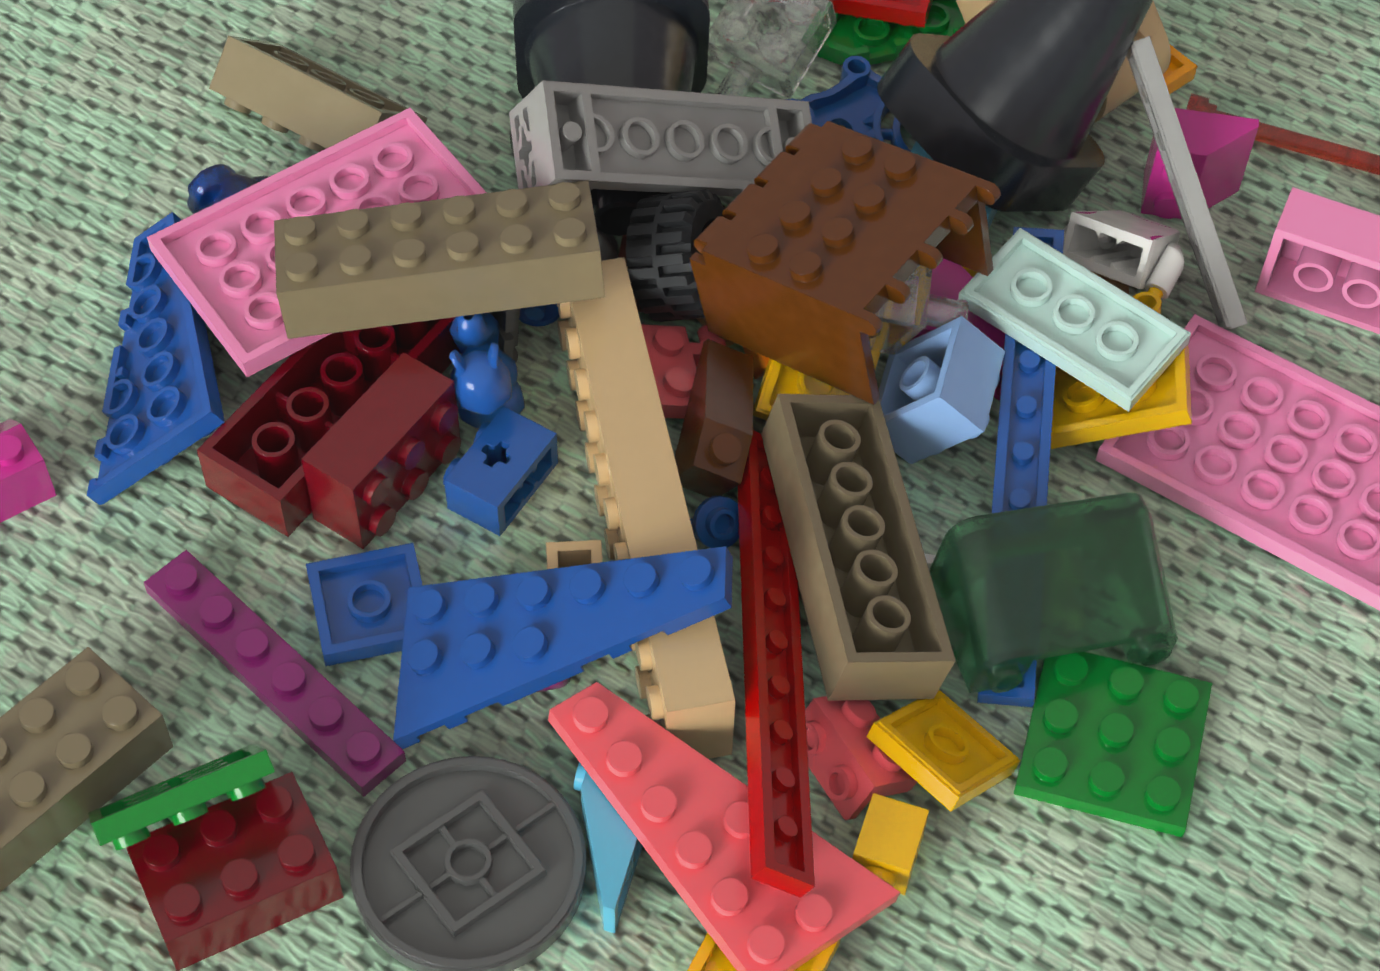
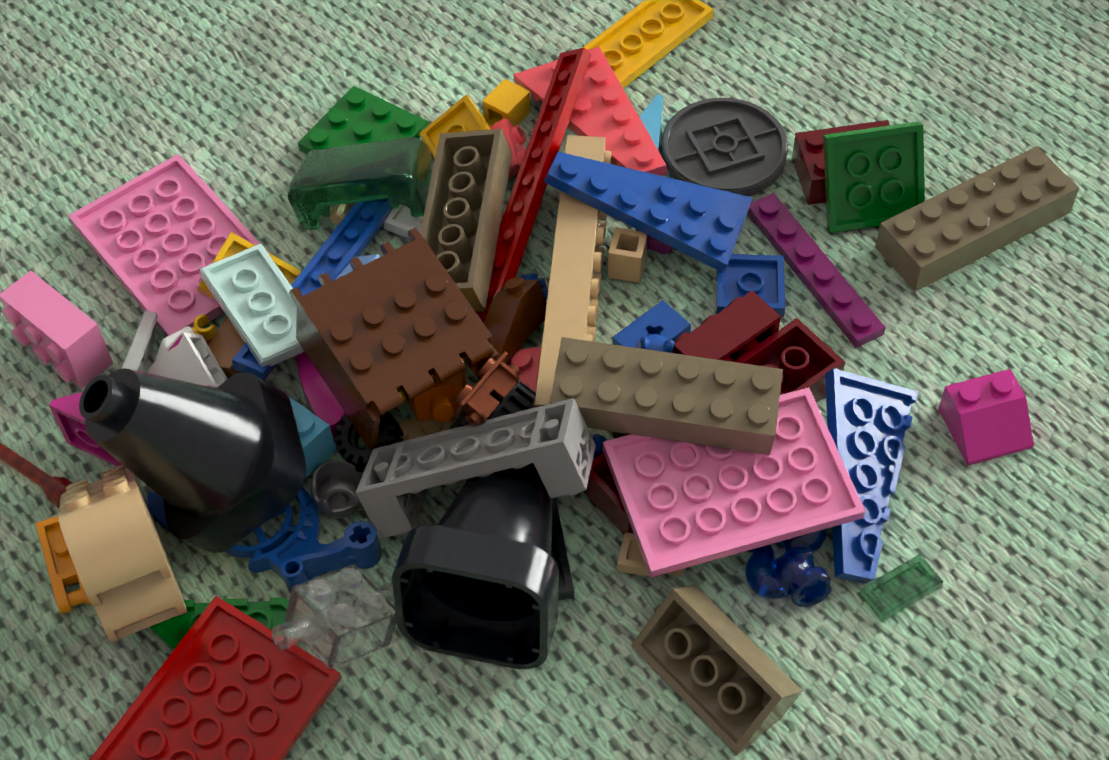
camera: 160 degrees left, 0 degrees up
(96, 245) = (901, 587): none -> clear green tile
(686, 202) = (477, 400): none -> copper hinge

